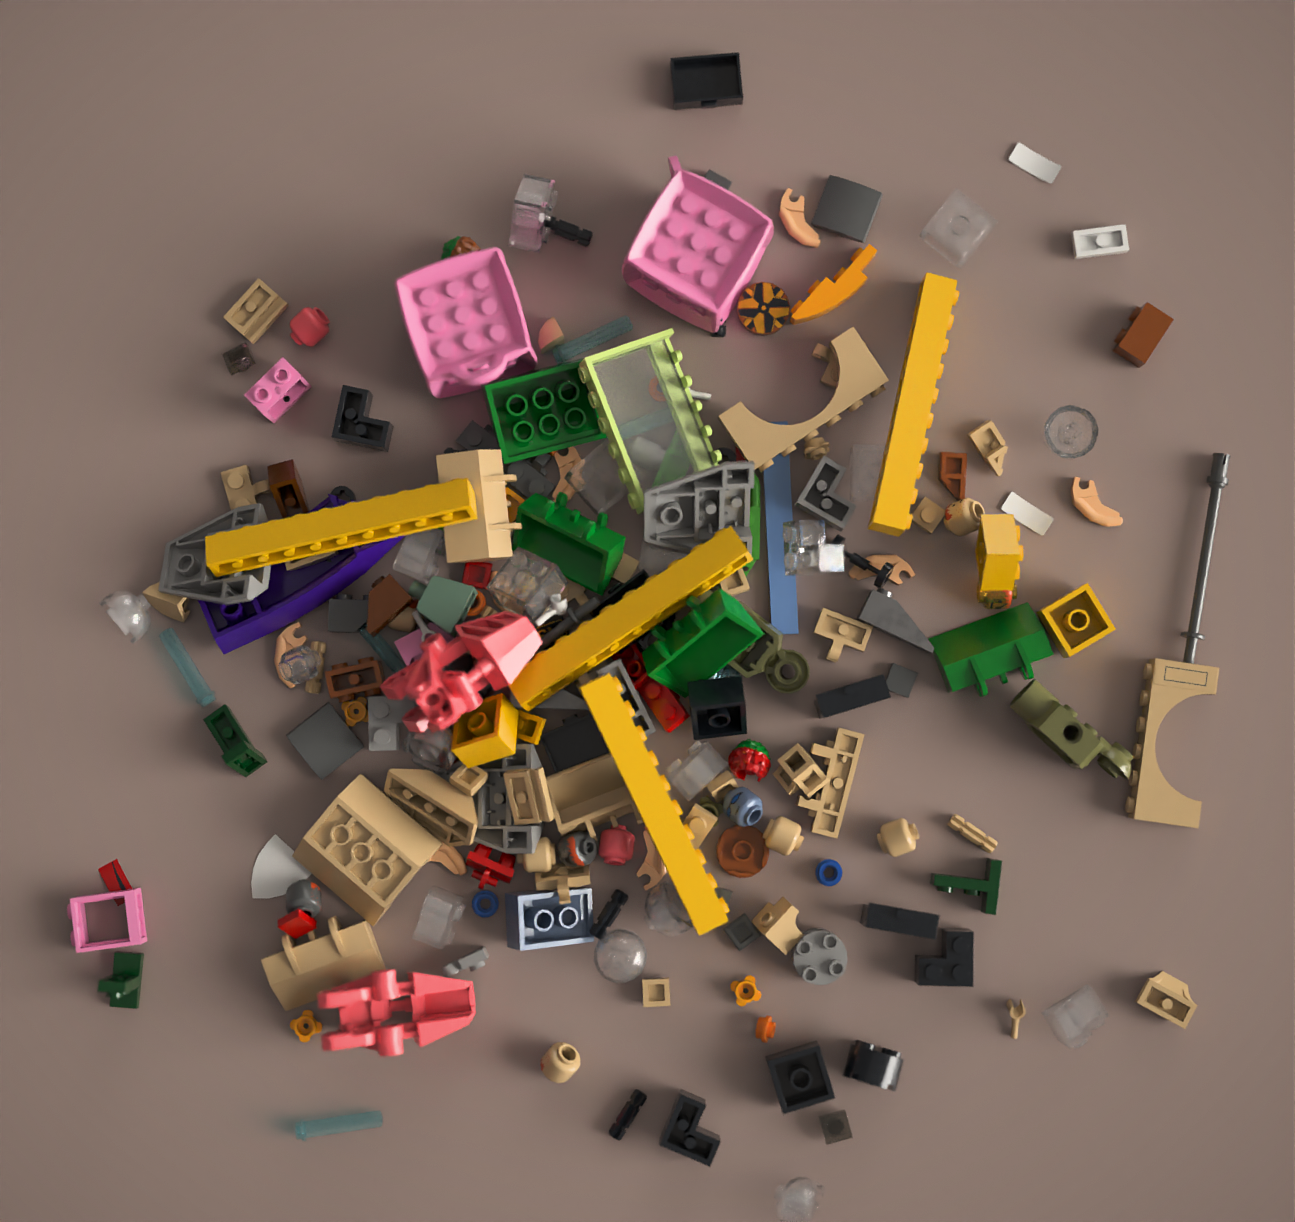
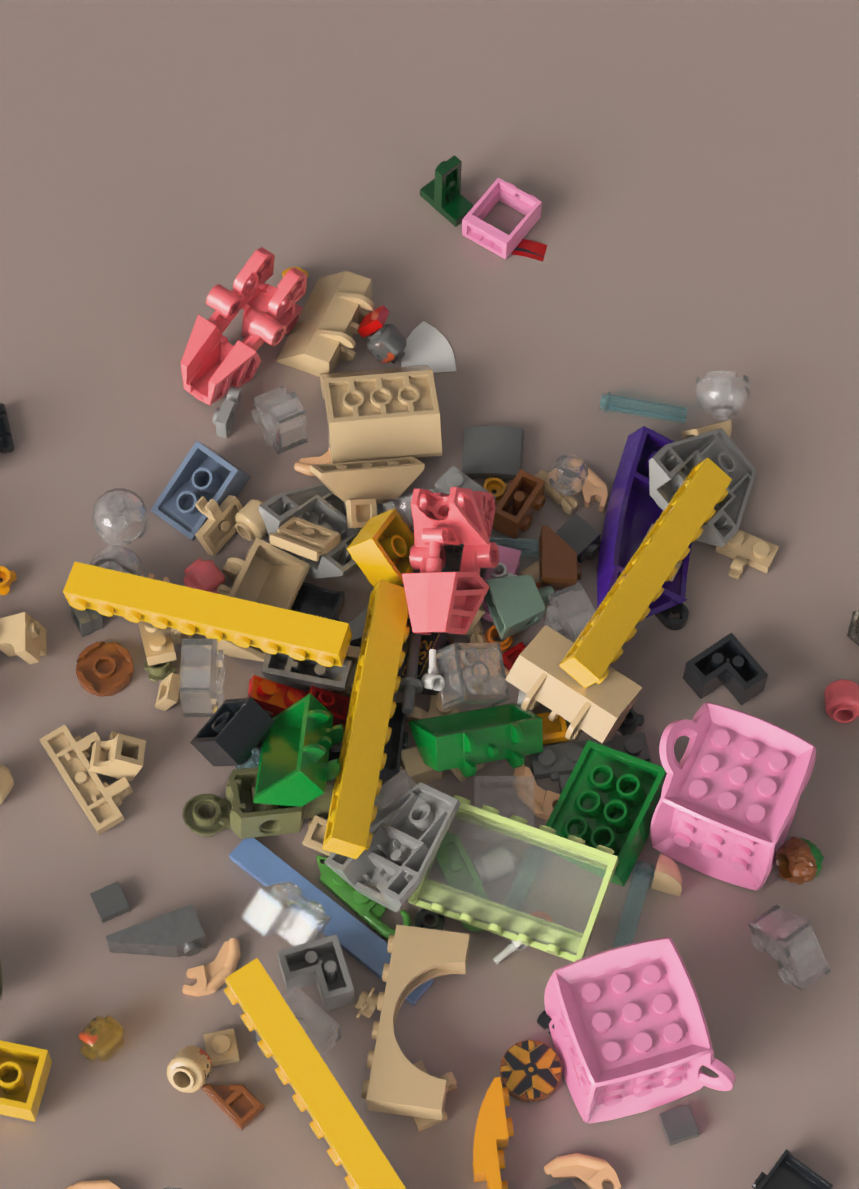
camera: 135 degrees right, 25 degrees down
(234, 742) = (552, 389): dark green bracket -> none
(274, 386) = (809, 623): bright pink window -> none
(287, 489) = (718, 579): reddish brown slope -> none
(339, 1124) = (210, 236): clear light blue axle -> none
(476, 903) = (257, 453): blue plate -> none
(479, 861) = (271, 487): red hips -> none
(530, 727) = (356, 591): yellow slope -> none
(560, 1062) = (95, 413): tan head -> none
(570, 231) = (748, 970): black axle -> none
(577, 849) = (229, 544): dark grey head -> none
(609, 914) = (159, 534): black axle -> none
(656, 992) = (67, 517): tan plate -> none
(742, 806) = (137, 690): sand blue head -> none
(742, 932) = (47, 614): dark grey tile -> none
(750, 759) = (167, 726): red piece -> none
(783, 835) = (84, 701): tan head -> none
(837, 872) = (17, 707): blue plate -> none
(842, 632) = (196, 888): tan plate -> none
(852, 696) = (134, 841): black container -> none
(883, 574) = (208, 956): black wheel -> none
(989, 445) = (229, 1156): tan slope -> none
(991, 648) = (59, 991): green piece -> none
(998, 552) = (131, 1058): yellow brick -> none
(1027, 514) = (139, 1134): white sticker -> none

